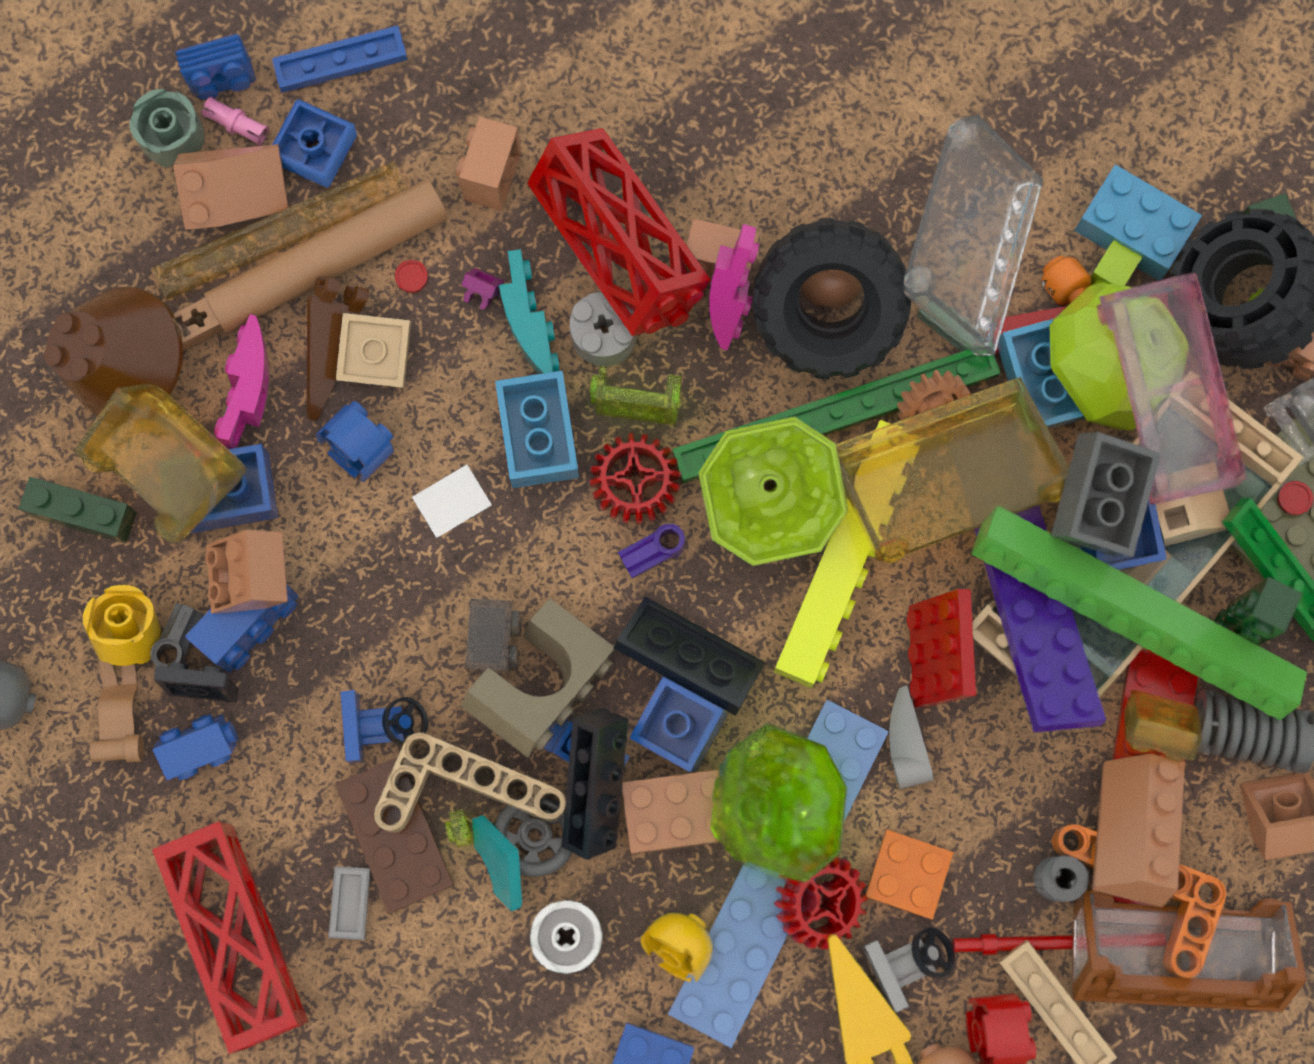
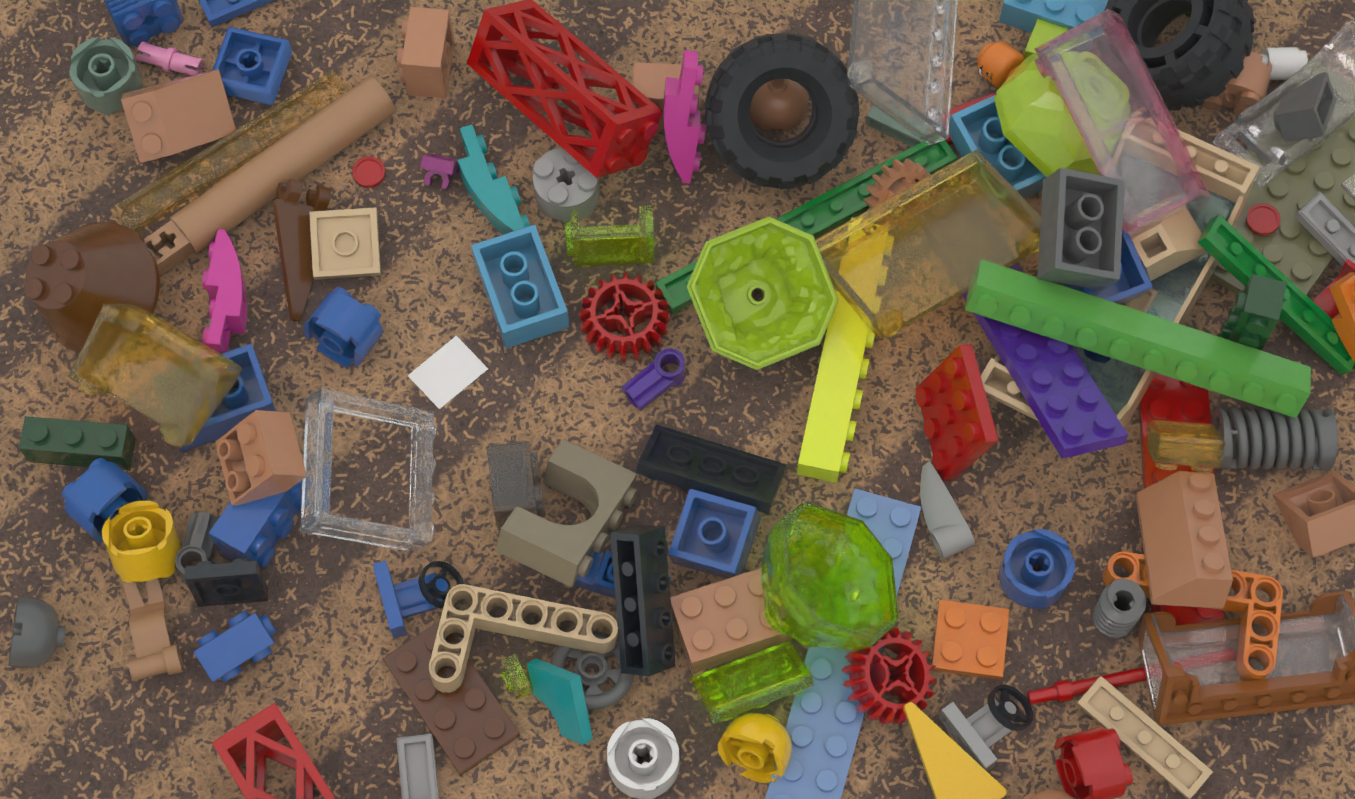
camera: 10 degrees left, 10 degrees down
(90, 572) = (100, 495): none -> blue brick
(302, 587) = (318, 461): none -> clear window
(685, 881) = (752, 682): none -> clear neon green plate
(1008, 818) = (1029, 587): none -> blue brick

